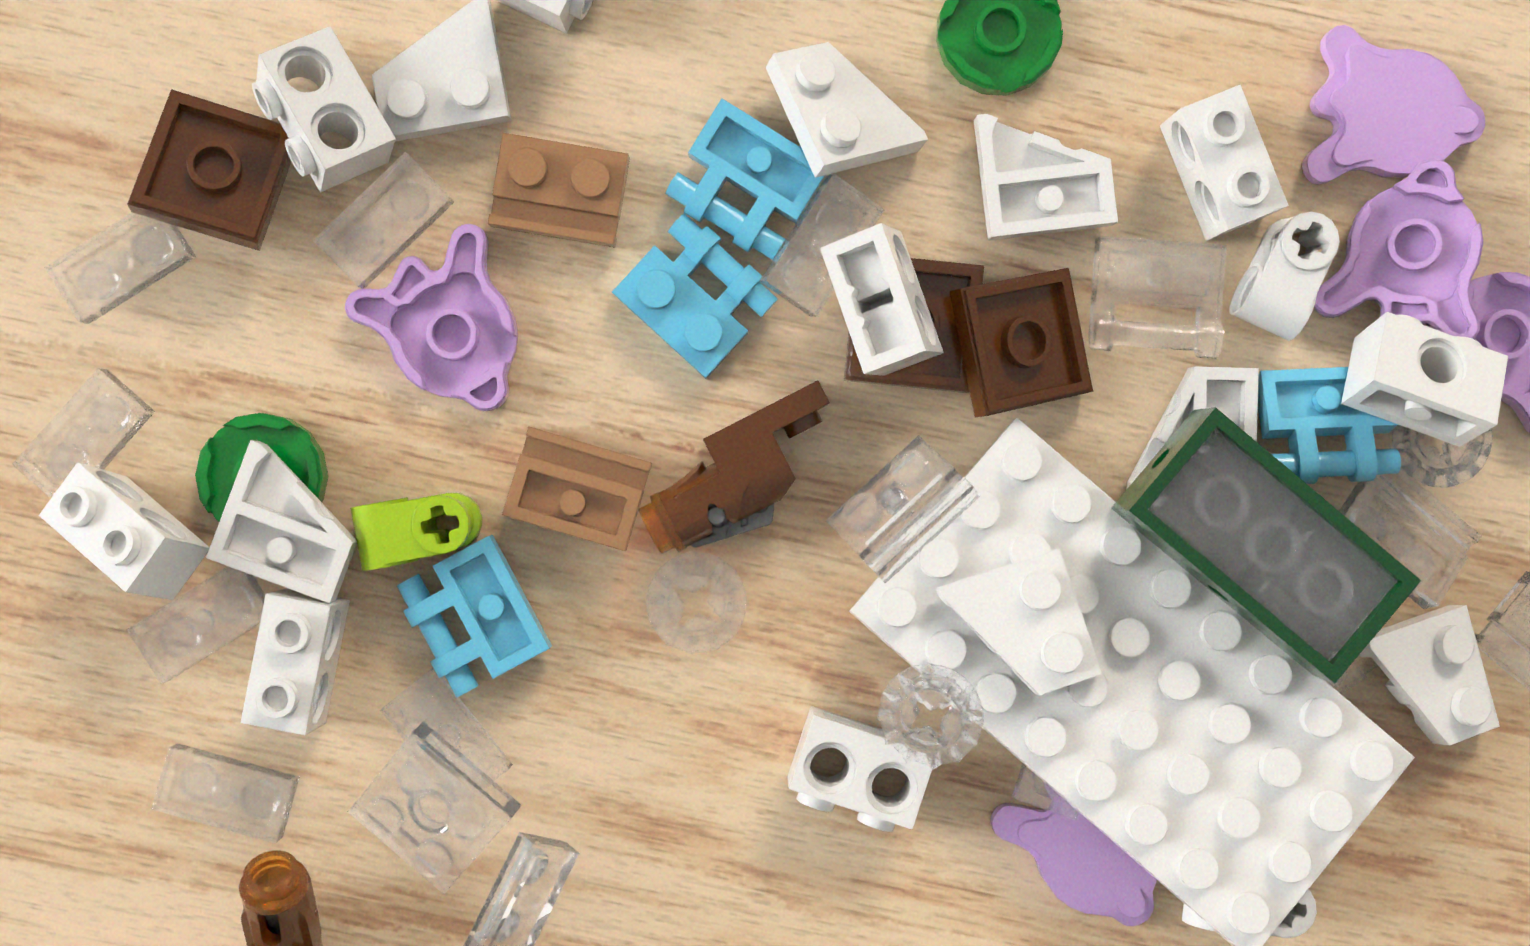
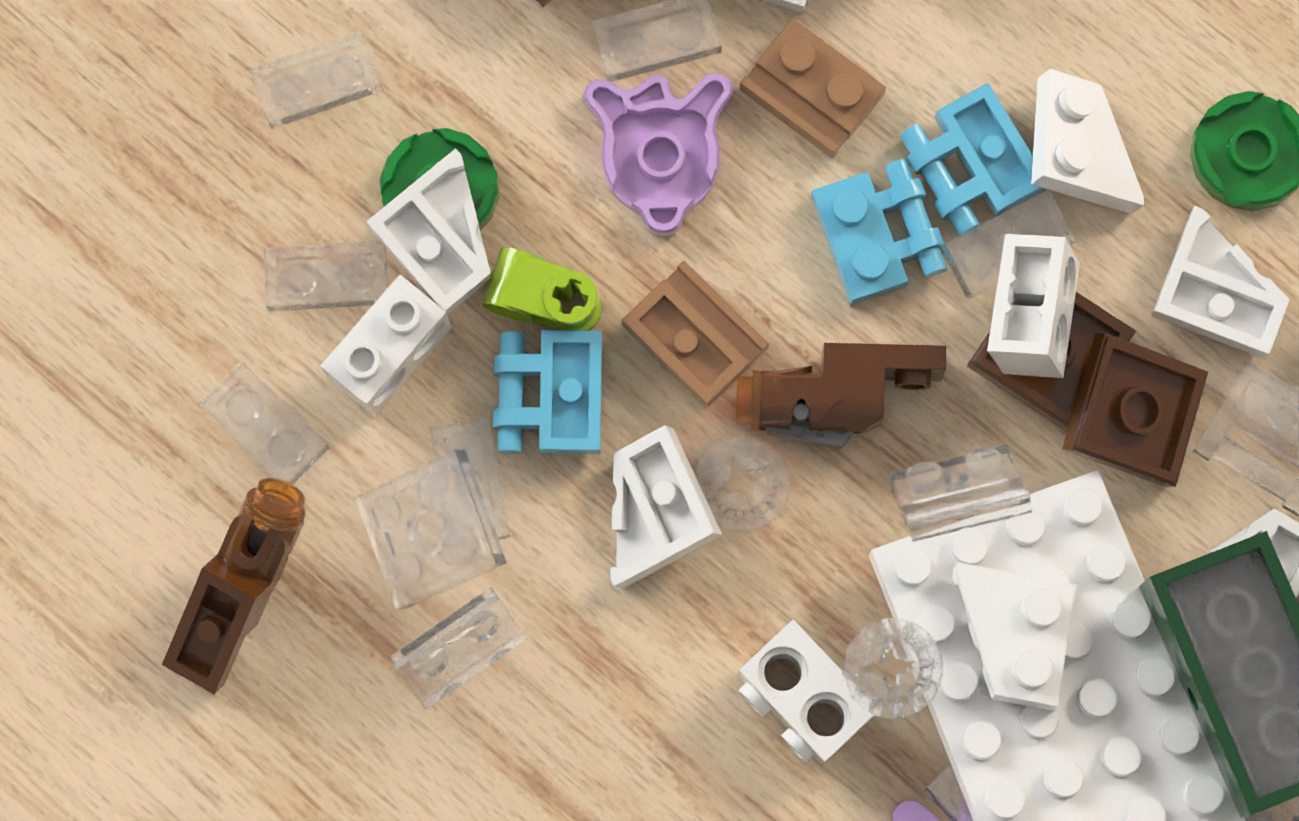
camera: 35 degrees right, 10 degrees down
(124, 532) = (312, 168): white brick -> none
(630, 669) = (657, 507): none -> white wing

